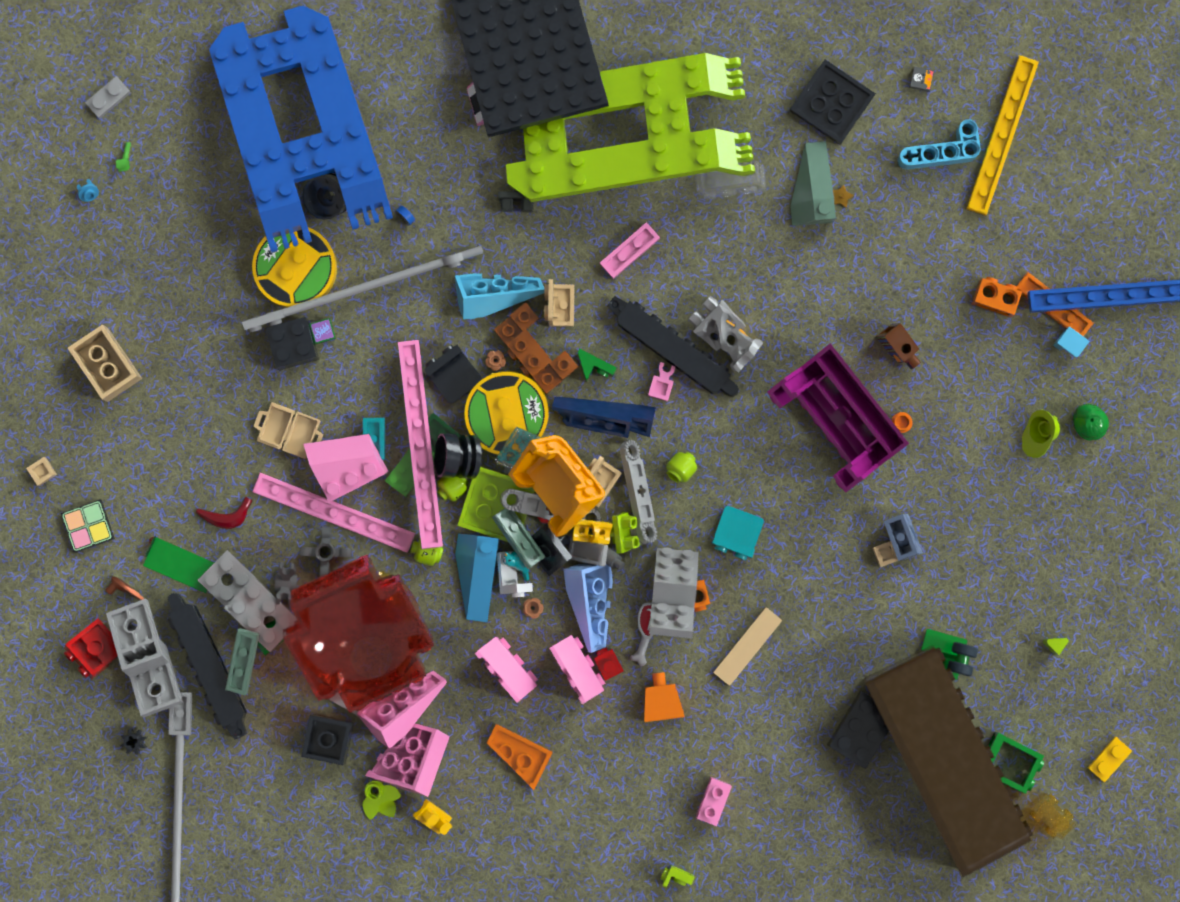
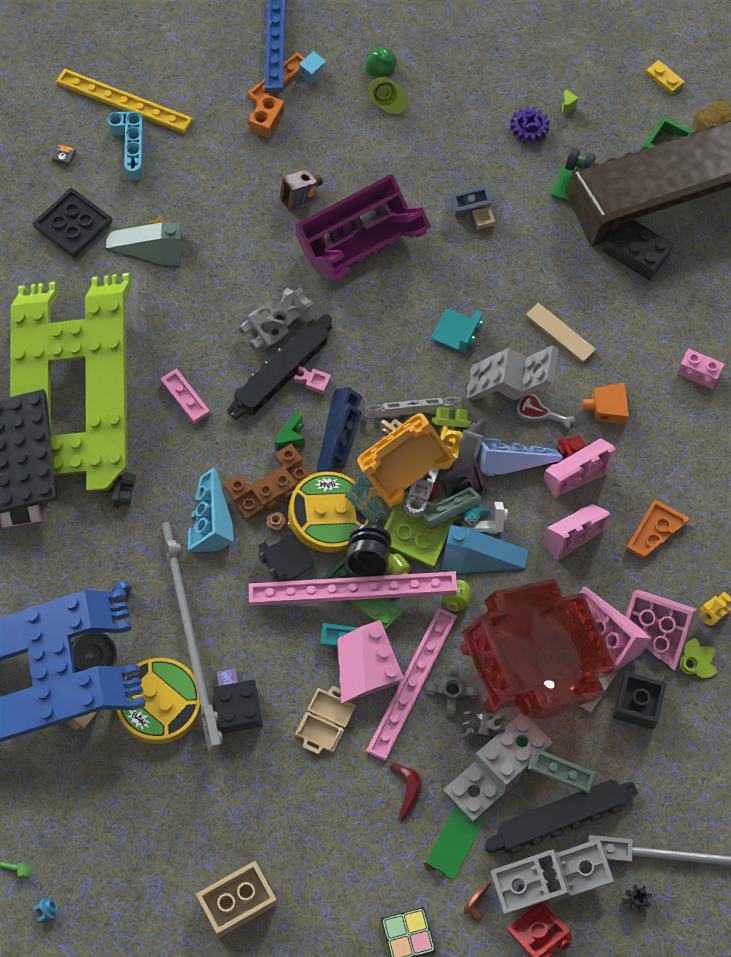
camera: 90 degrees left, 20 degrees down
(532, 613) = (517, 502): nougat plate -> none
(560, 304) = (229, 458): tan bracket -> none
(681, 467) = (393, 369): lime head -> none
(1014, 608) = (530, 124): none -> dark purple gear

